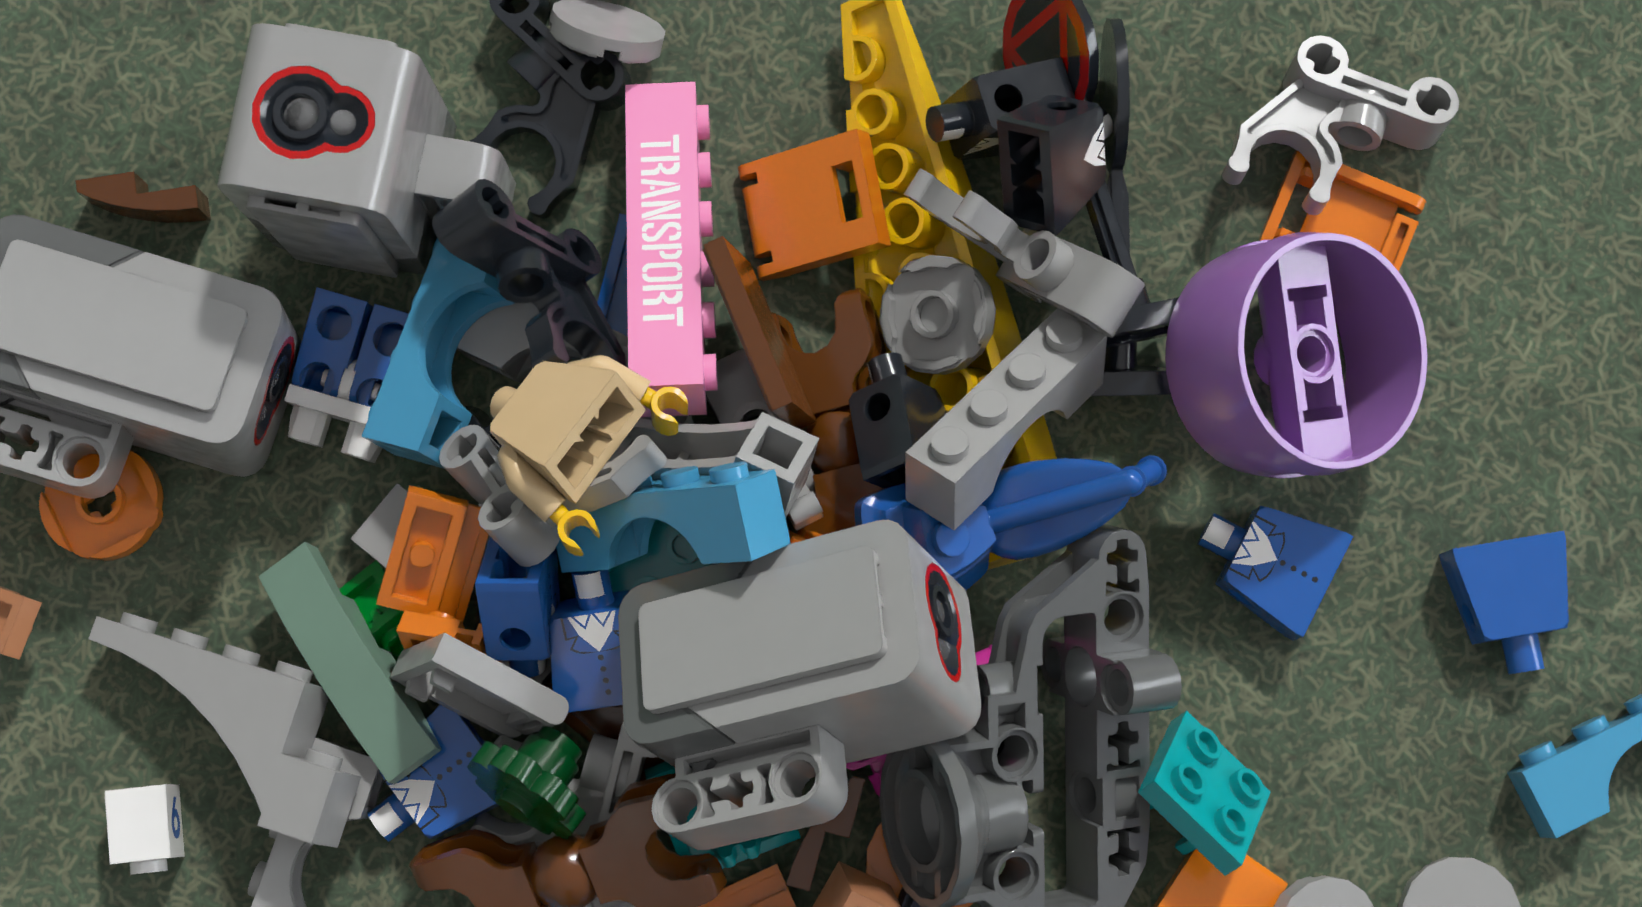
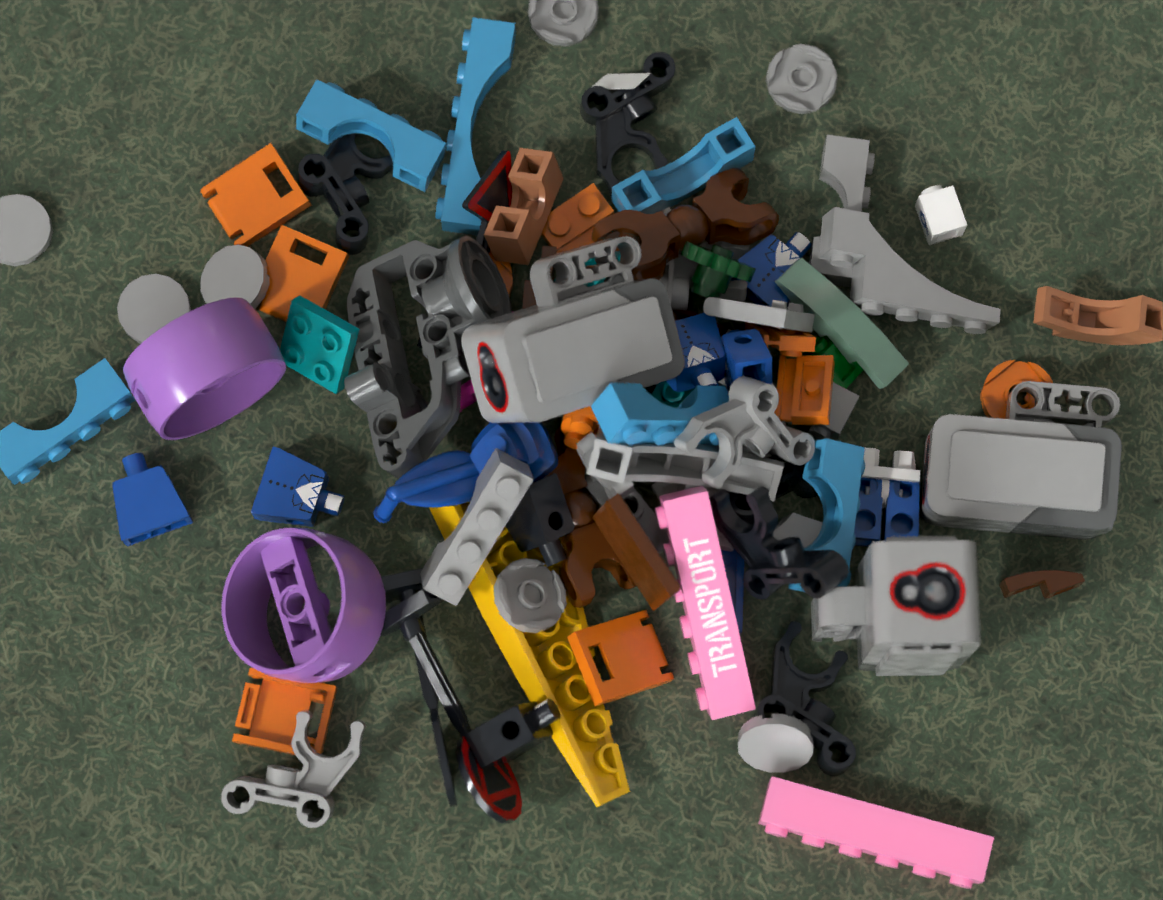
camera: 170 degrees right, 5 degrees down
(567, 427) = (737, 452): tan torso -> none
(1035, 261) = (473, 633): light grey piece -> none
(1051, 160) = (475, 691): black torso -> none
(1404, 772) = (204, 368): none -> medium lavender cylinder

